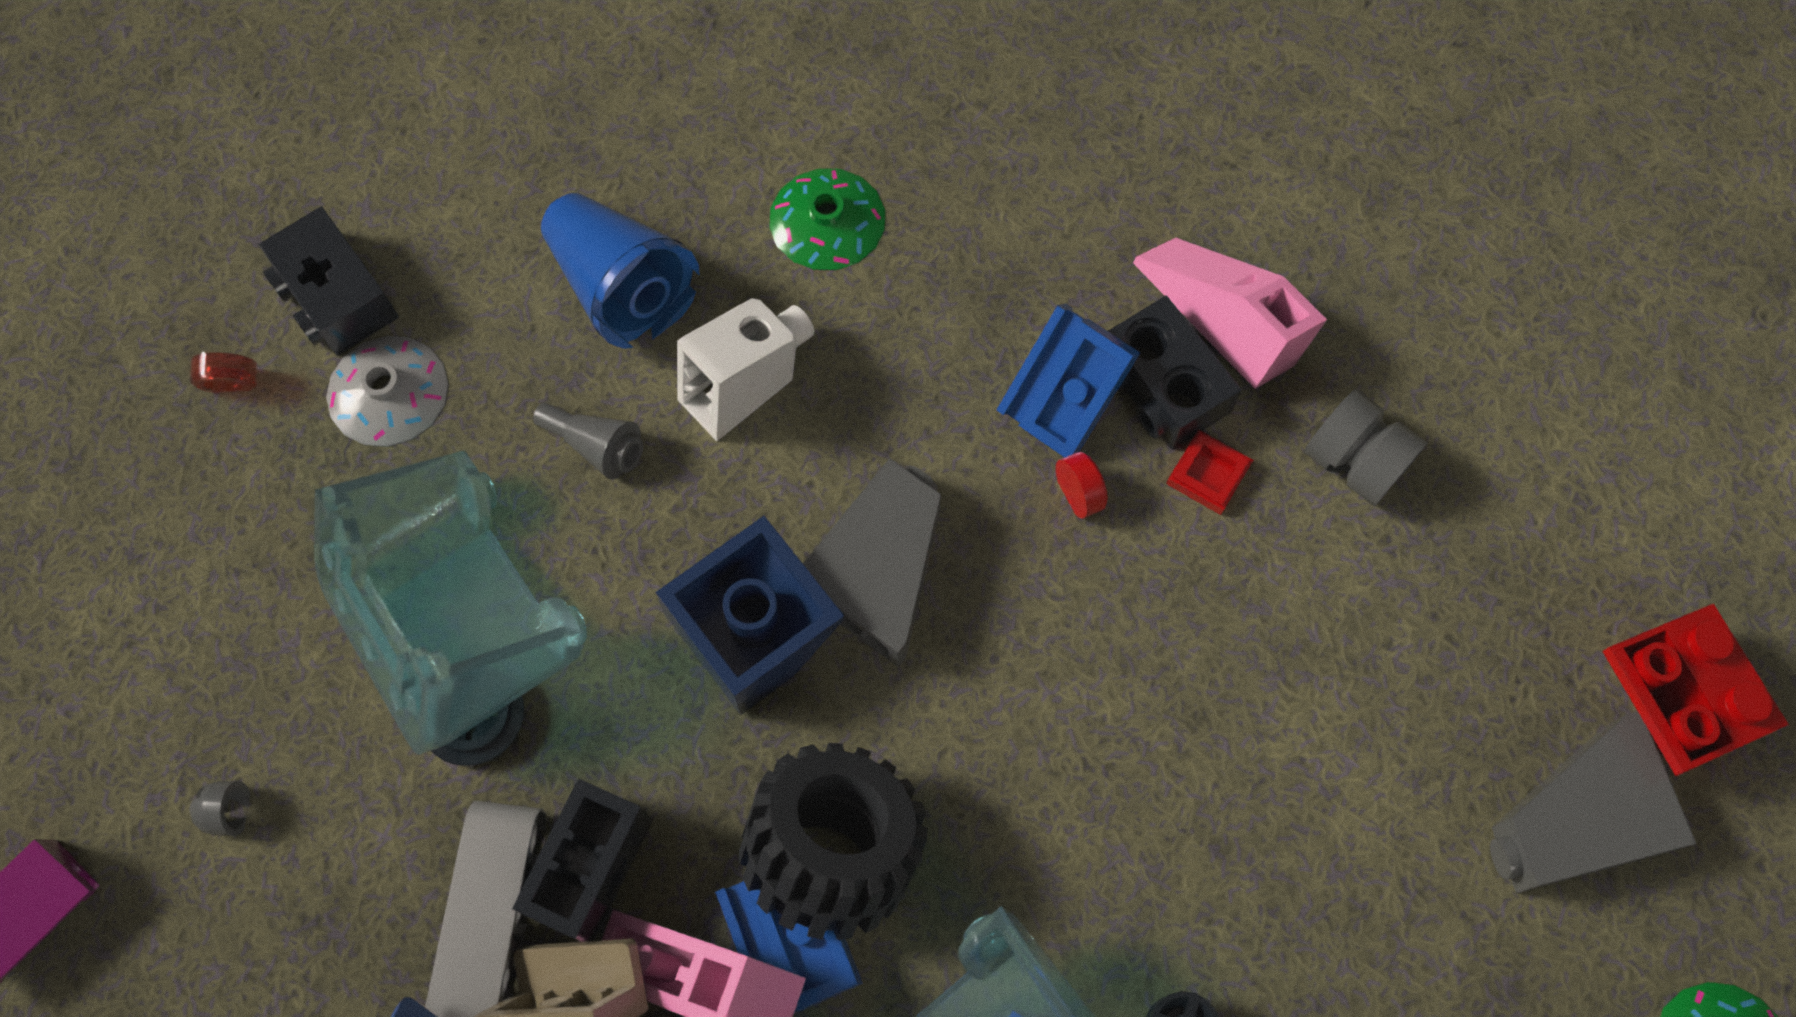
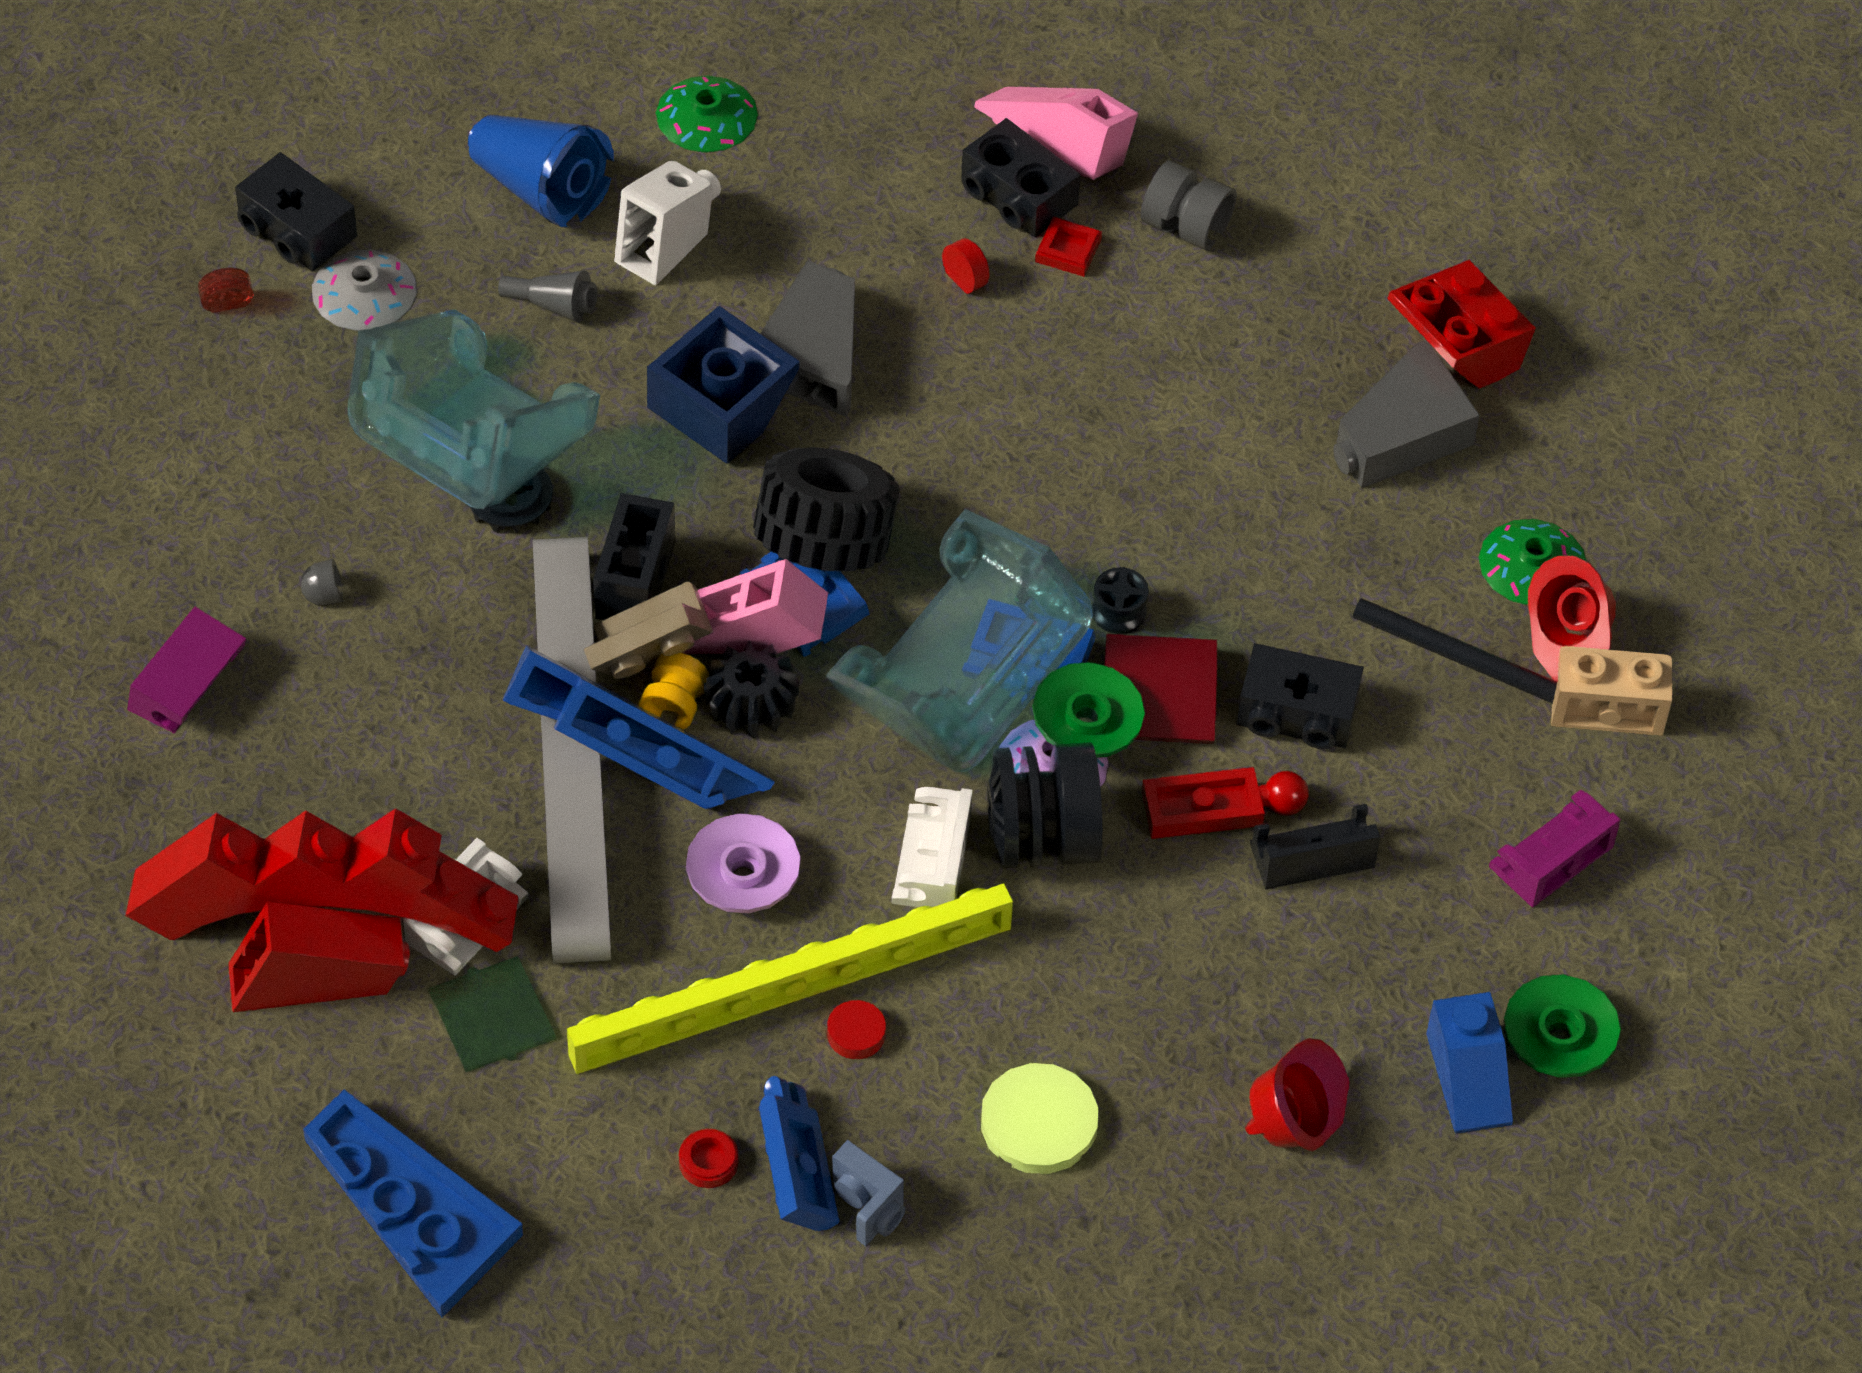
camera: 15 degrees left, 15 degrees down
(1067, 381) = (938, 190): blue plate -> none

